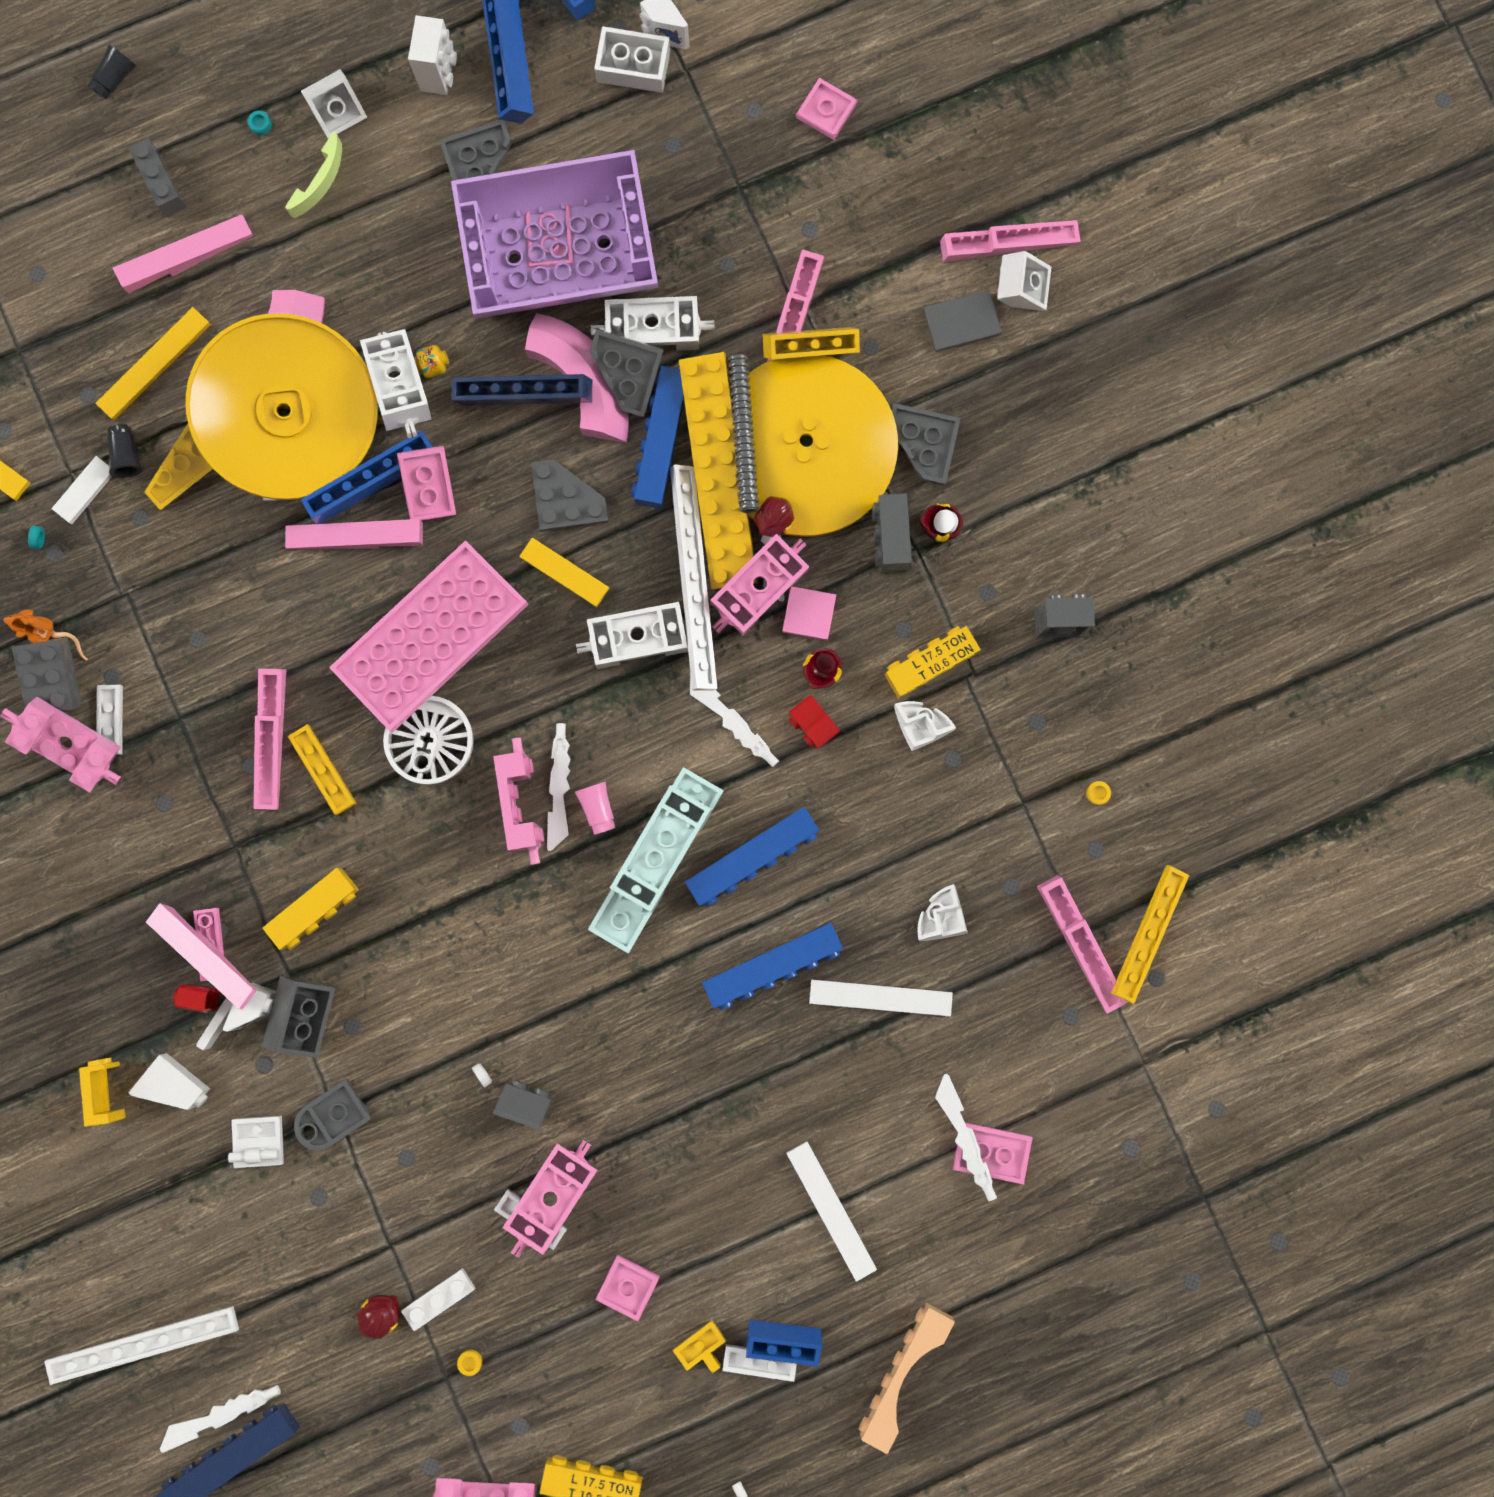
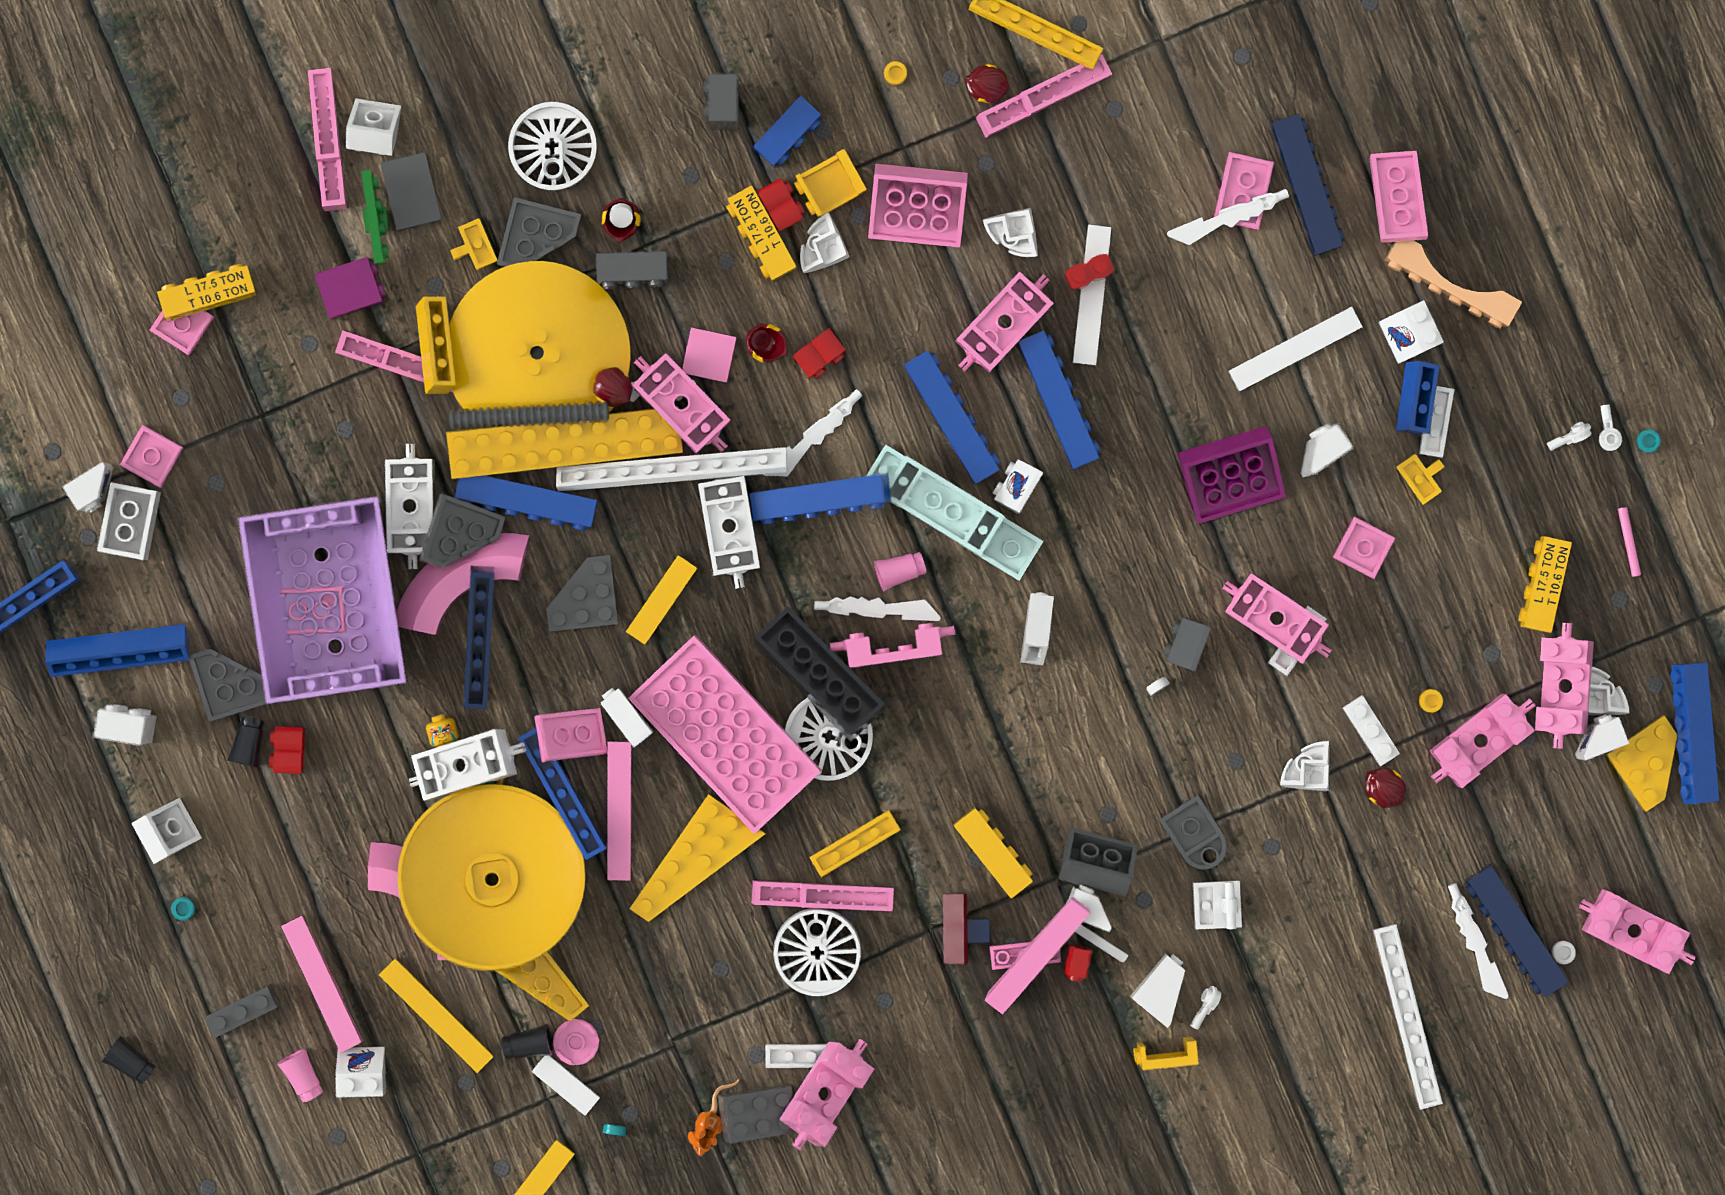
camera: 90 degrees left, 5 degrees up
(94, 234) = (301, 1075): none -> bright pink plant
(95, 292) = (361, 1072): none -> white slope
(125, 499) = (576, 1042): none -> bright pink tile
(158, 1137) = (1210, 998): none -> white plate
(209, 745) = (817, 987): none -> white piece
(233, 895) = (978, 930): none -> dark blue tile
(234, 872) = (955, 929): none -> tile
(302, 202) = (270, 862): yellowish green slope -> none
(314, 616) = (703, 847): none -> yellow wing
(398, 1234) = (1308, 769): none -> white brick
(412, 215) = (288, 750): none -> red brick
(418, 176) = (247, 742): none -> black plant
(442, 1440) = (1499, 722): none -> bright pink brick
(445, 538) = (626, 716): none -> white slope
(488, 727) = (819, 673): none -> black brick
(539, 949) = (1037, 628): none -> white slope
(667, 725) = (820, 497): none -> blue brick
(683, 925) = (1017, 486): none -> white slope
(697, 83) = (151, 456): none -> bright pink tile
(700, 1147) = (1232, 474): none -> magenta slope
(726, 1245) = (1324, 447): none -> white slope
(852, 1334) = (1411, 332): none -> white slope
(856, 127) = (206, 293): none -> yellow brick
(865, 263) = (350, 288): none -> magenta brick
(869, 926) = (987, 341): none -> bright pink brick
(906, 1000) = (1095, 270): none -> red brick
(911, 383) = (475, 244): none -> yellow plate
(935, 284) = (375, 217): none -> green plate
(962, 679) = (780, 205): none -> red brick
(966, 817) = (917, 205): none -> bright pink slope
(983, 729) = (830, 184): none -> yellow panel
(992, 1318) = (1398, 196): none -> bright pink plate
(1001, 1219) = (1306, 184): none -> dark blue brick
(1035, 686) = (788, 132): none -> blue brick
(1046, 454) = (552, 111): none -> white piece
(1092, 885) = (987, 83): none -> dark red hair

